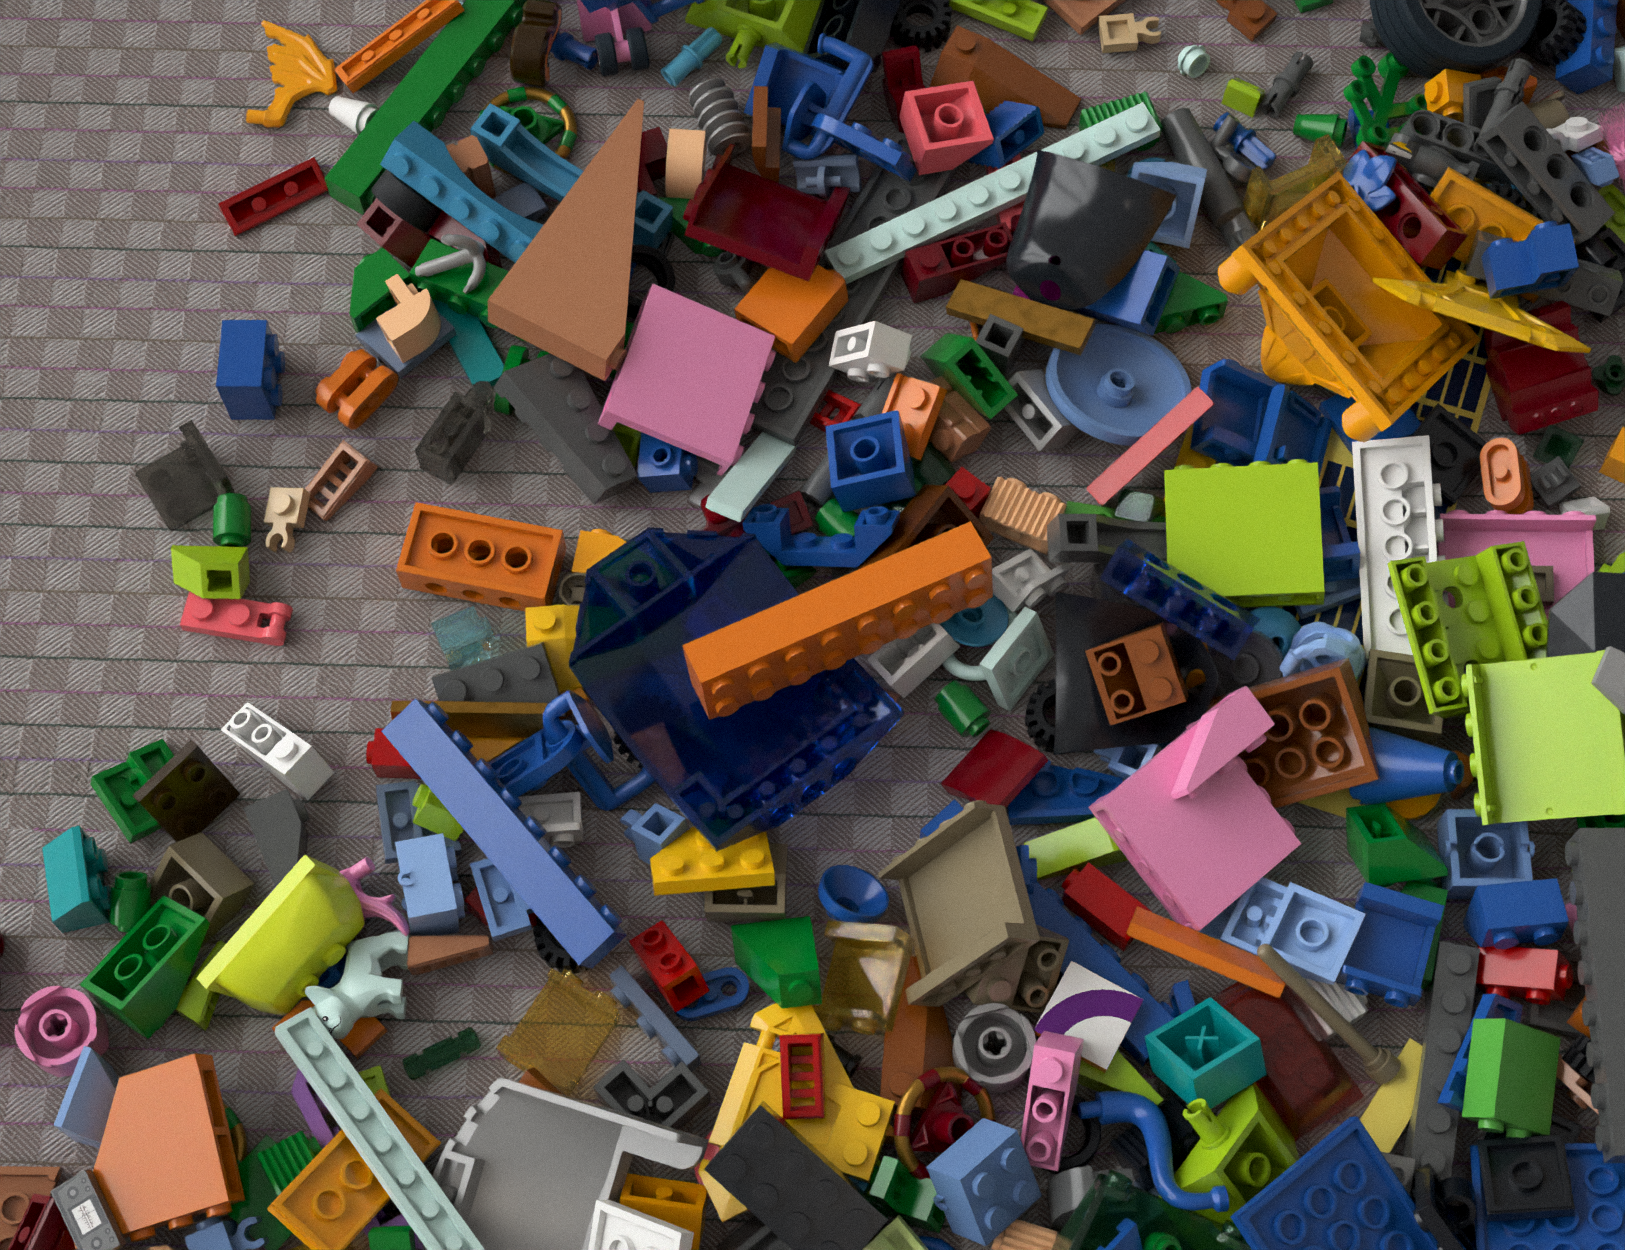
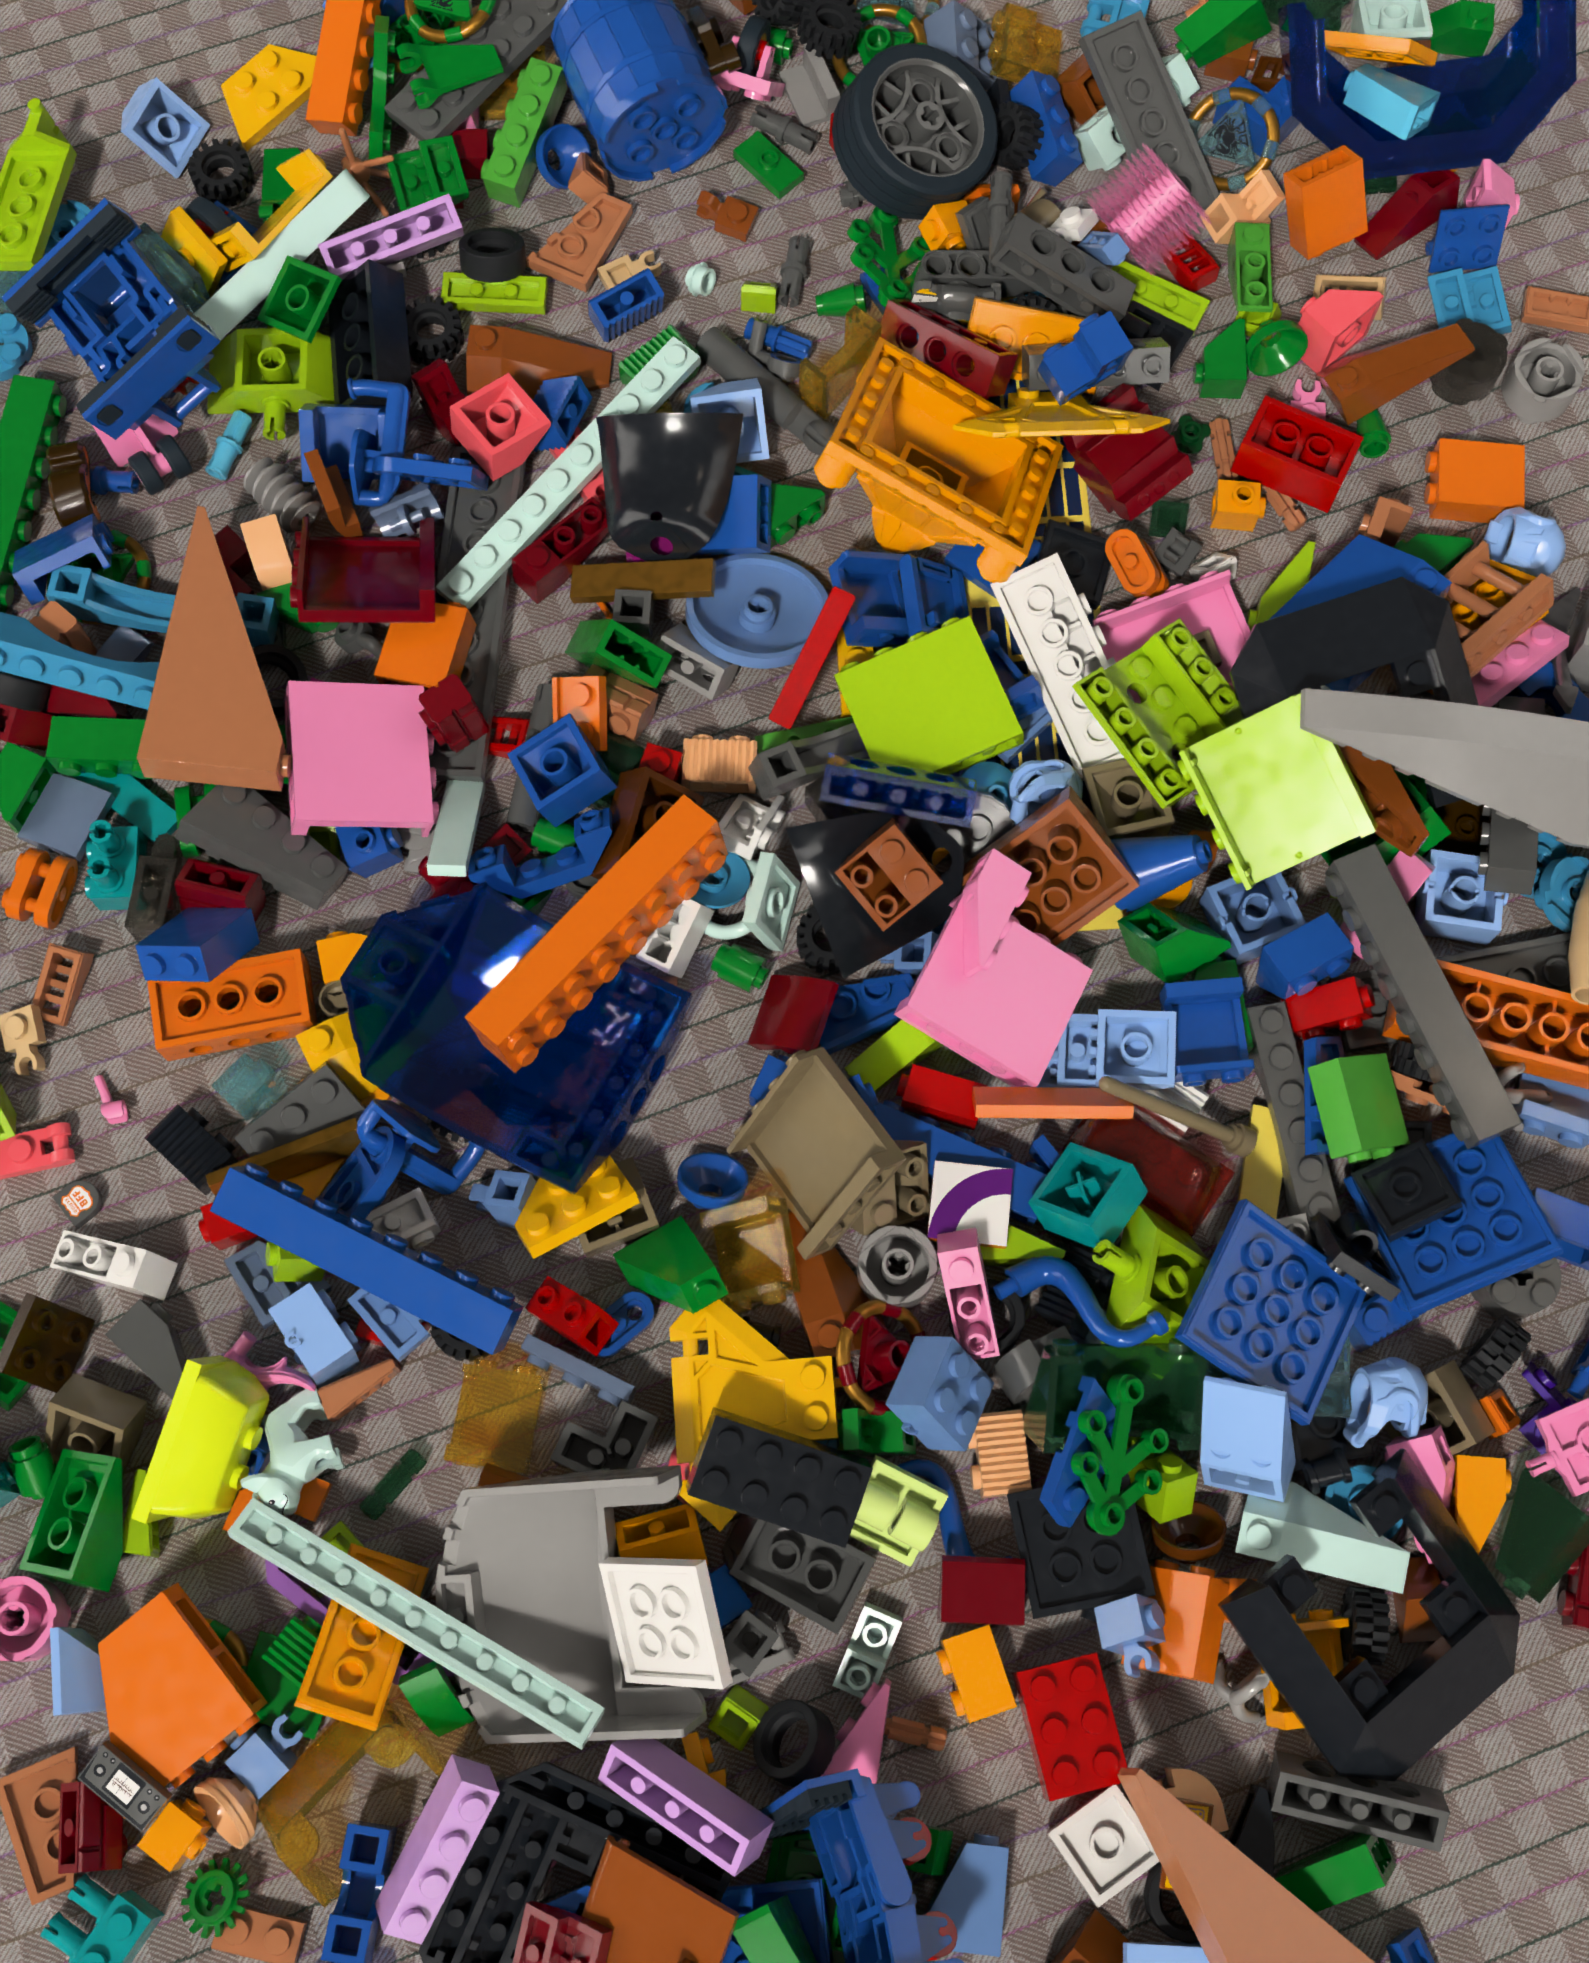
camera: 25 degrees left, 5 degrees up
(271, 682) = (79, 1202): none -> tile
(336, 613) = (113, 1111): none -> bright pink hand
(389, 670) = (190, 1147): none -> black brick
(412, 323) = (69, 804): light nougat brick -> none
(428, 390) = (112, 864): none -> teal brick
(469, 252) = (97, 715): light grey piece -> none
(473, 491) = (197, 944): none -> blue brick
(499, 92) = (58, 549): none -> blue panel
(513, 453) = (219, 886): none -> dark red brick
(788, 1041) = (723, 1335): red slope -> none
(790, 371) = (452, 714): none -> dark red brick
(870, 351) = (518, 666): white brick -> none
(1112, 59) = (626, 305): none -> blue brick
(1139, 506) = (823, 717): slope -> none
(1369, 178) = (910, 332): blue plate -> none

